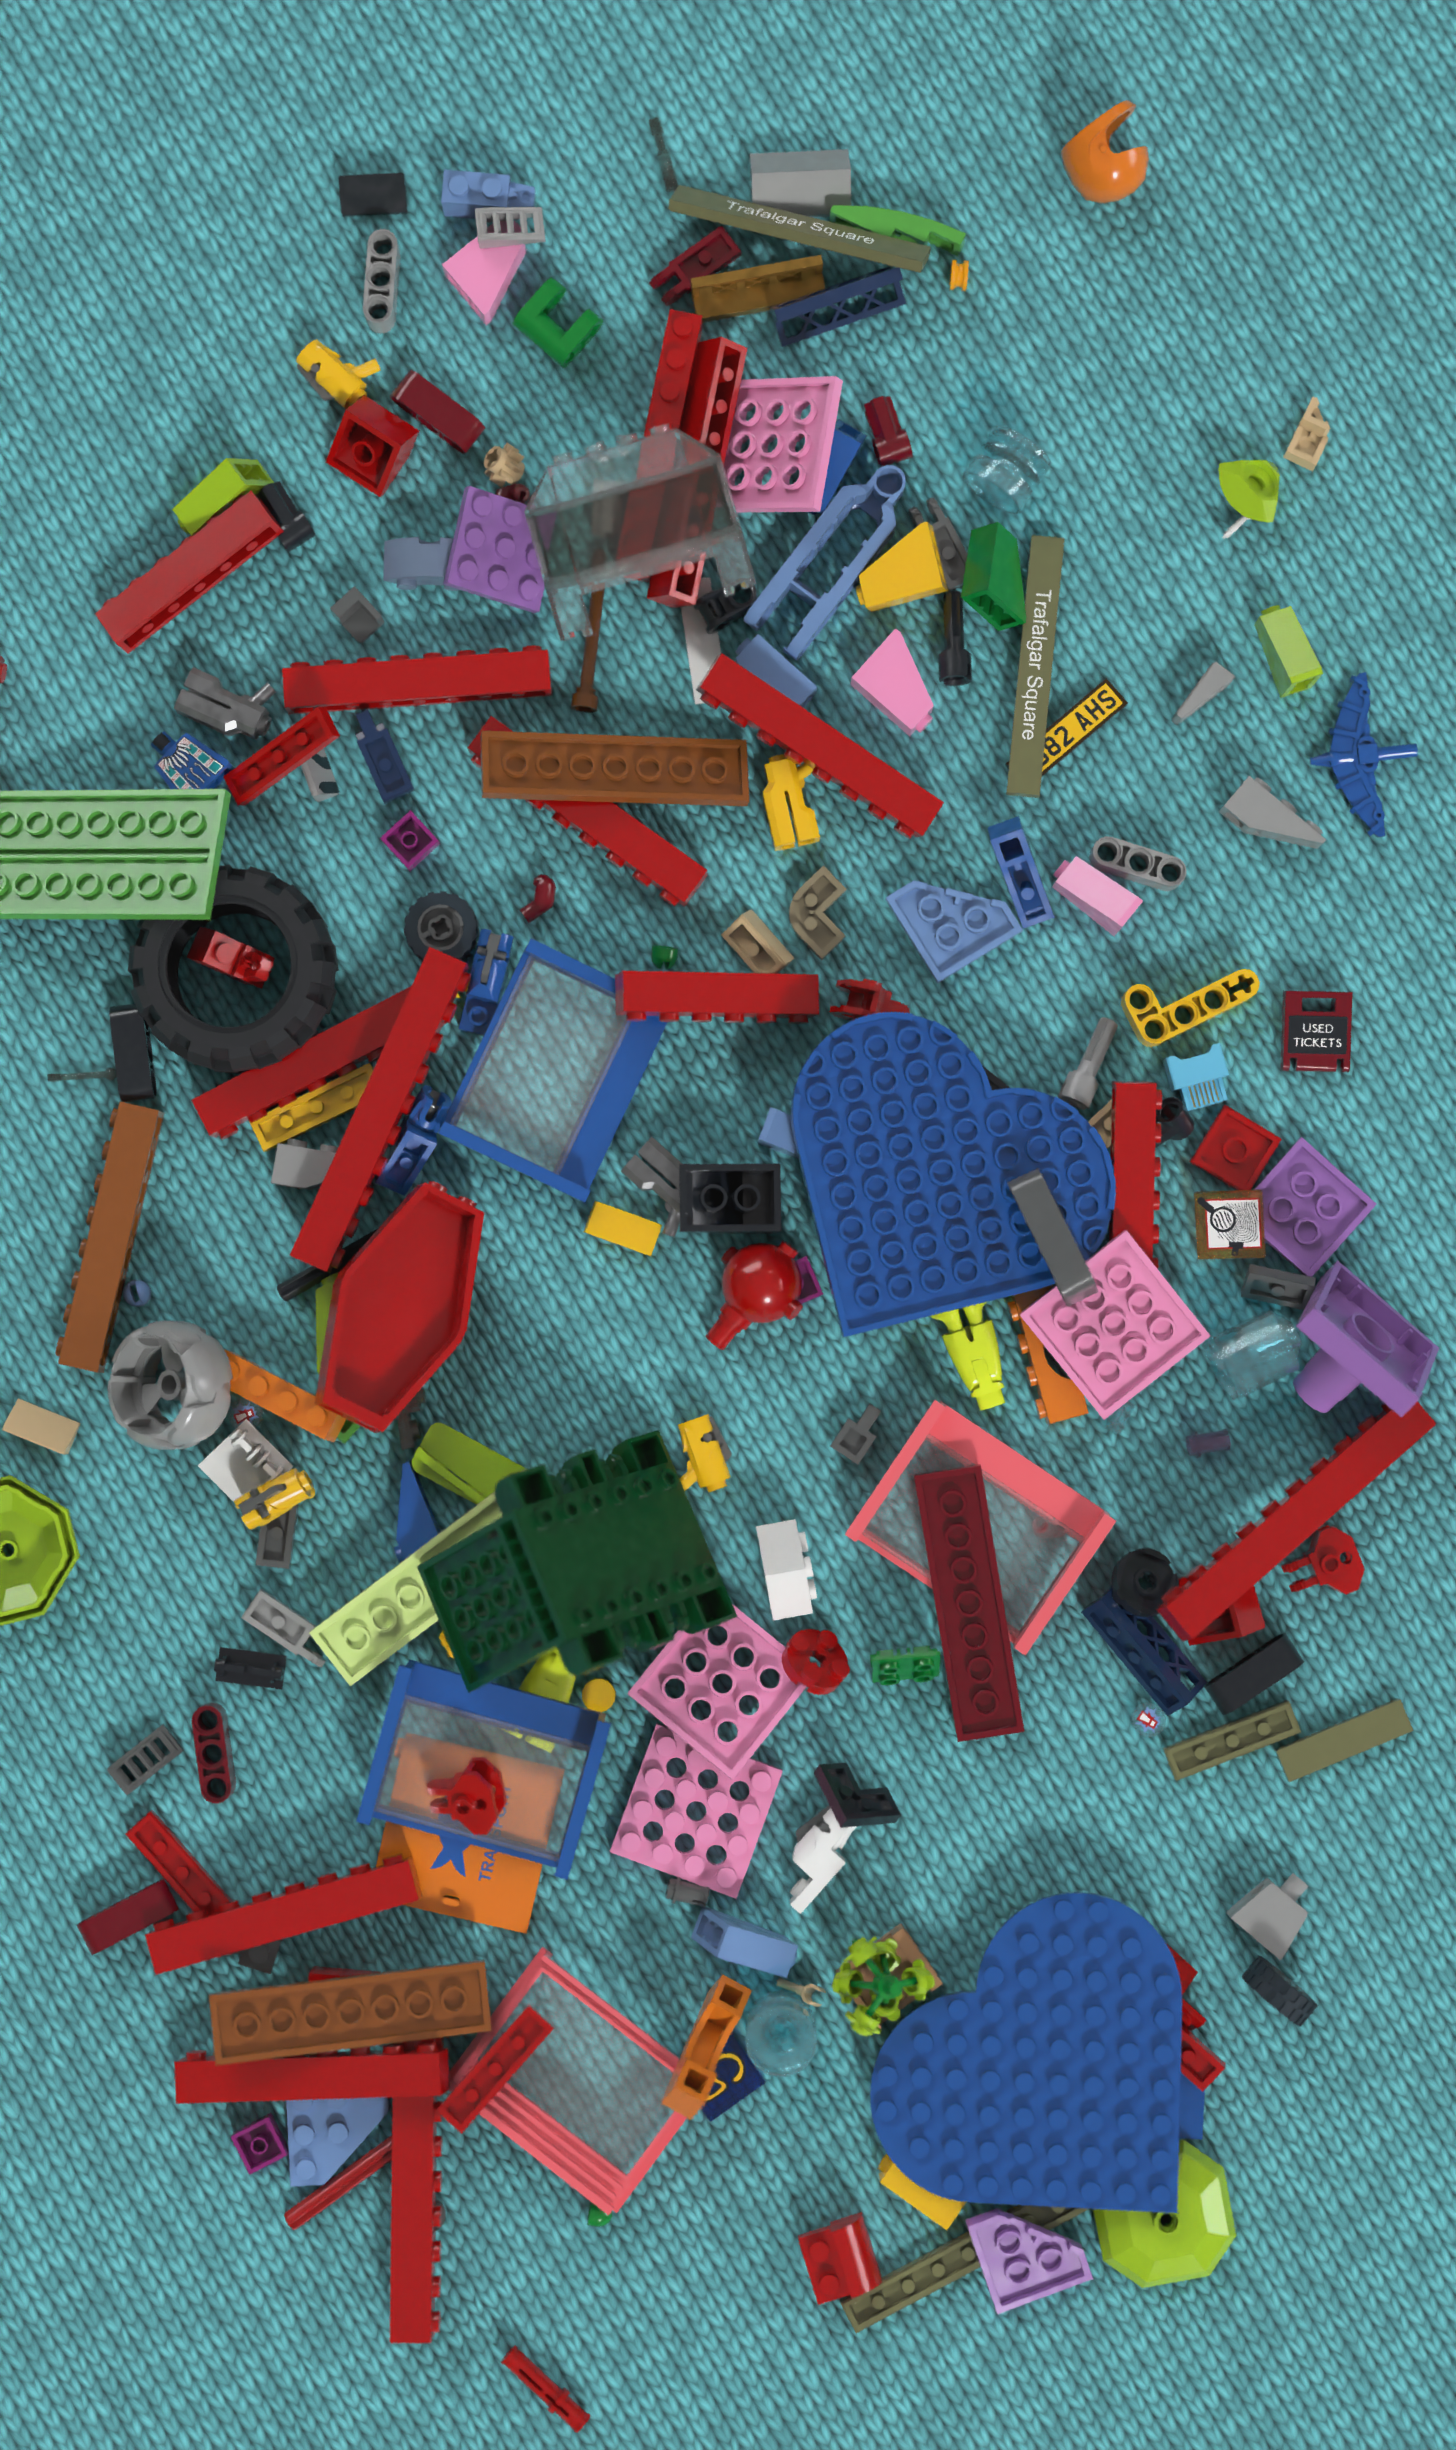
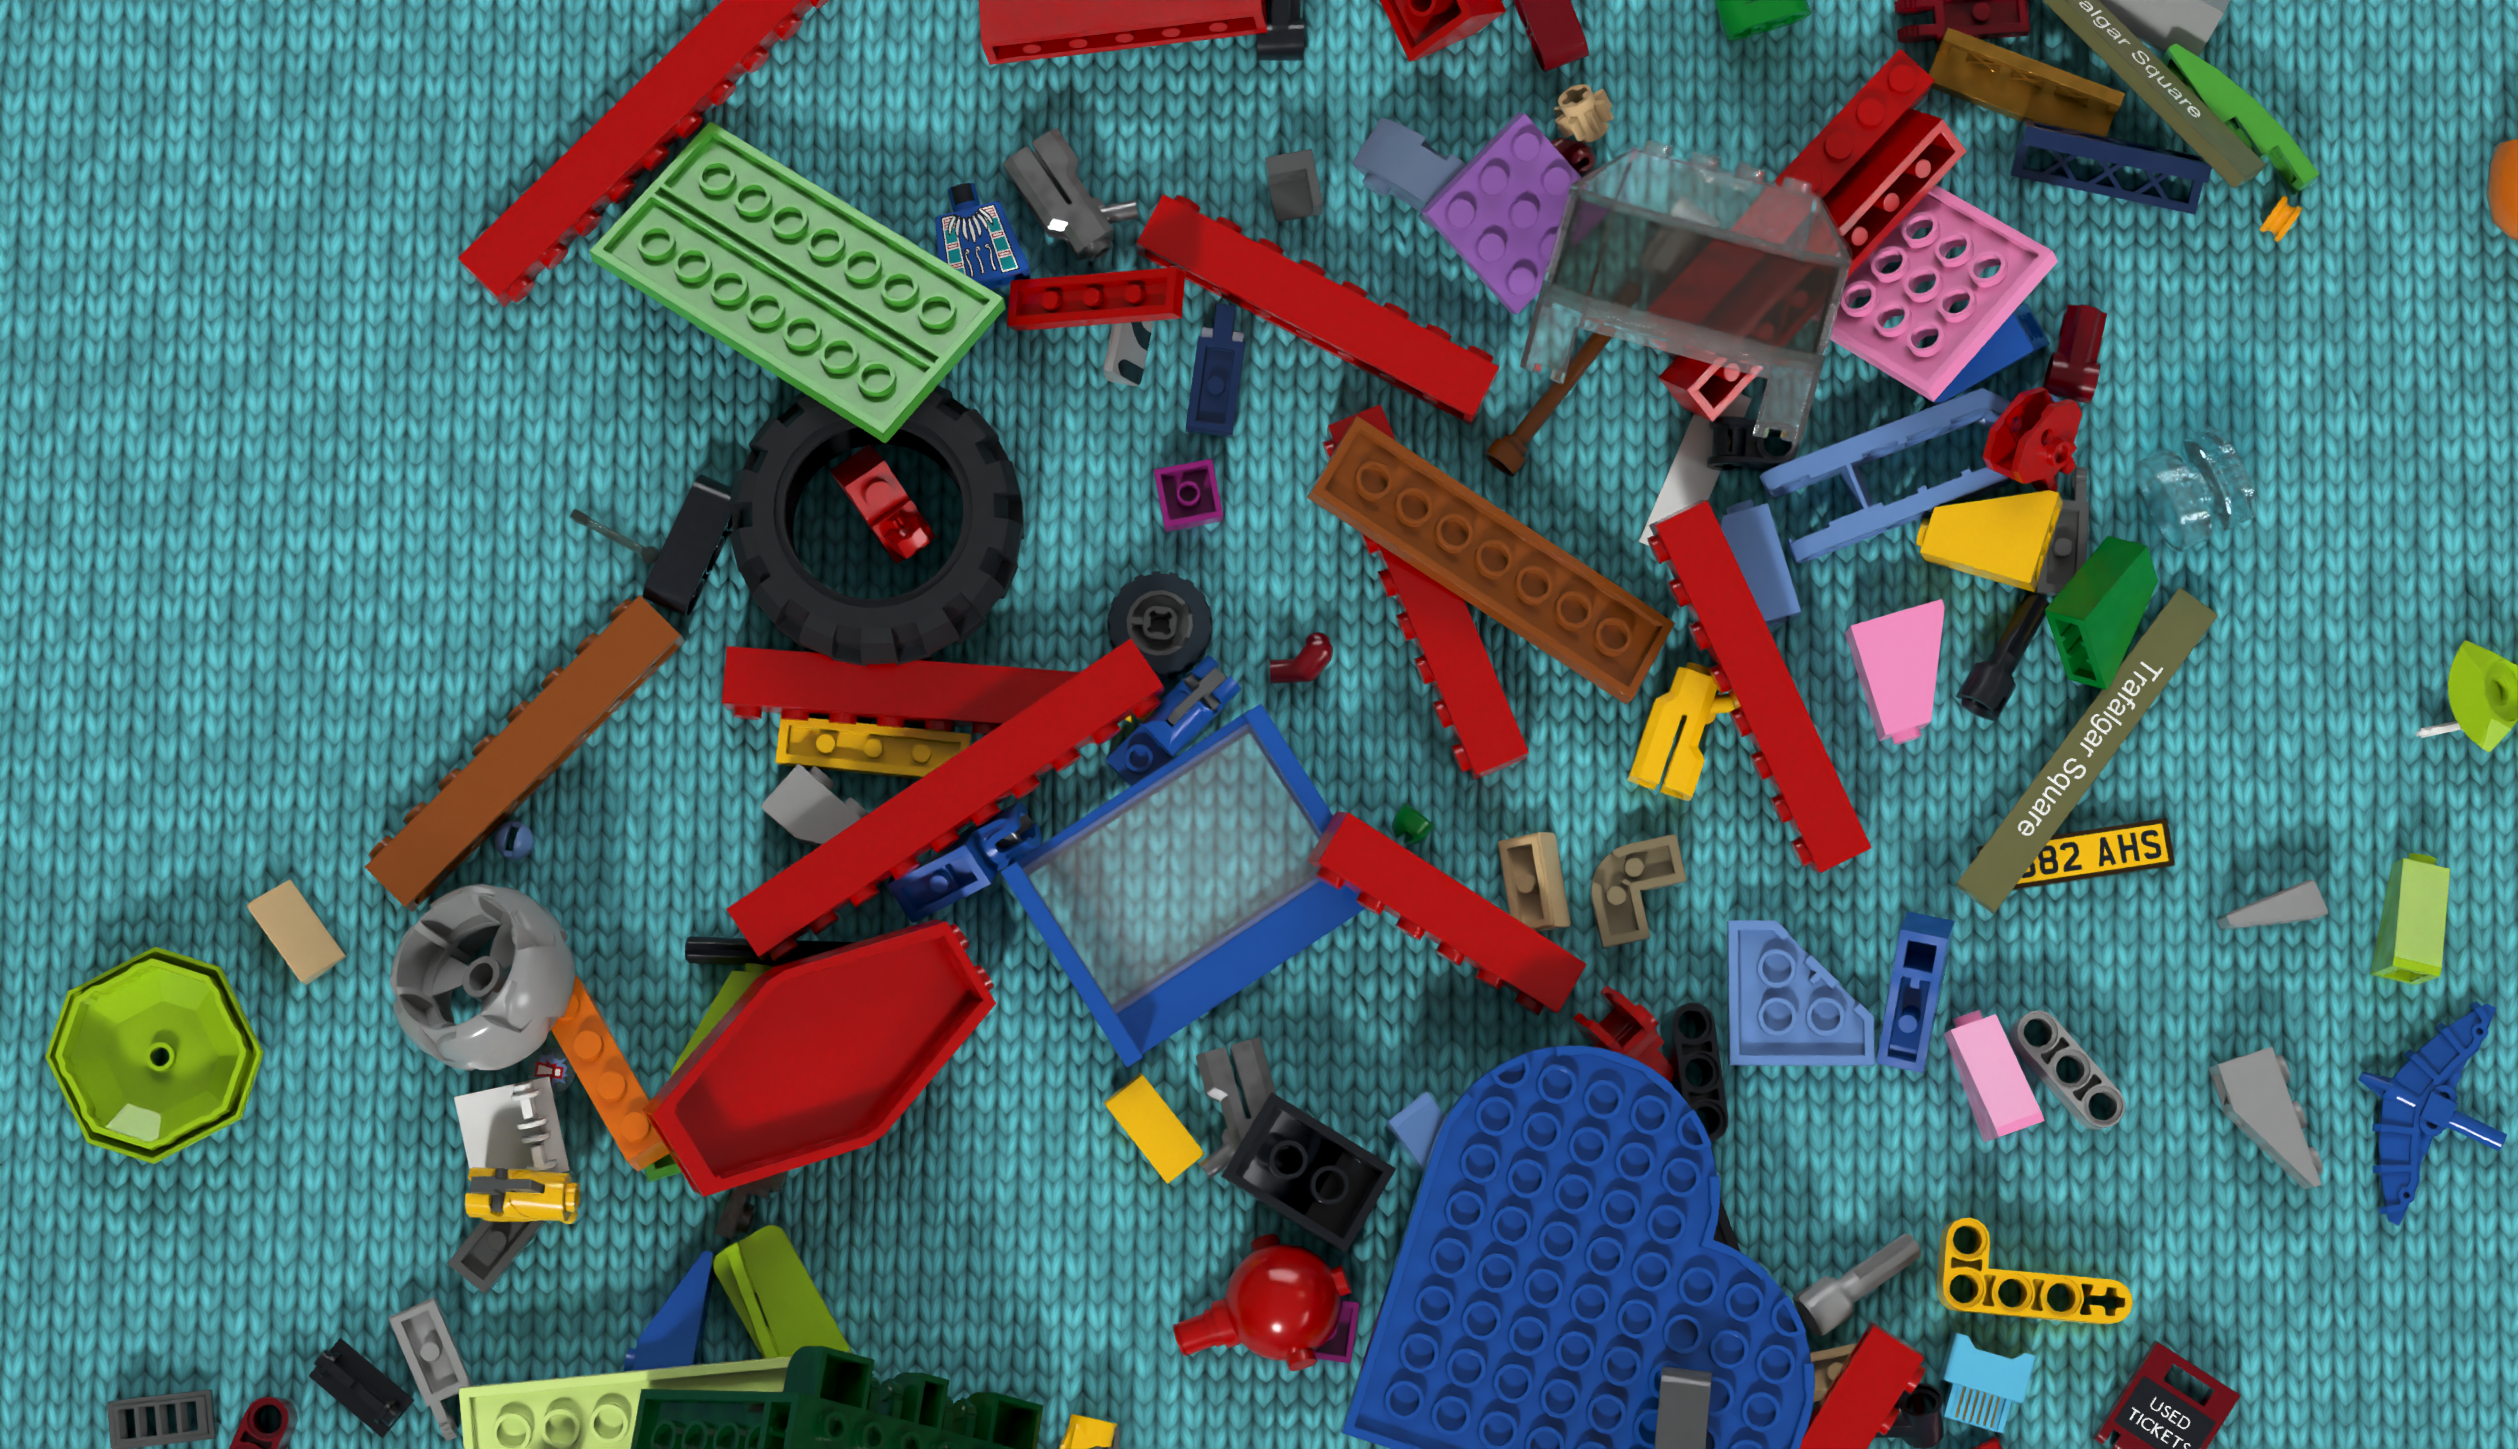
camera: 30 degrees right, 5 degrees down
(896, 497) = (2036, 442): none -> red hinge
(918, 984) = (1704, 1052): none -> black beam

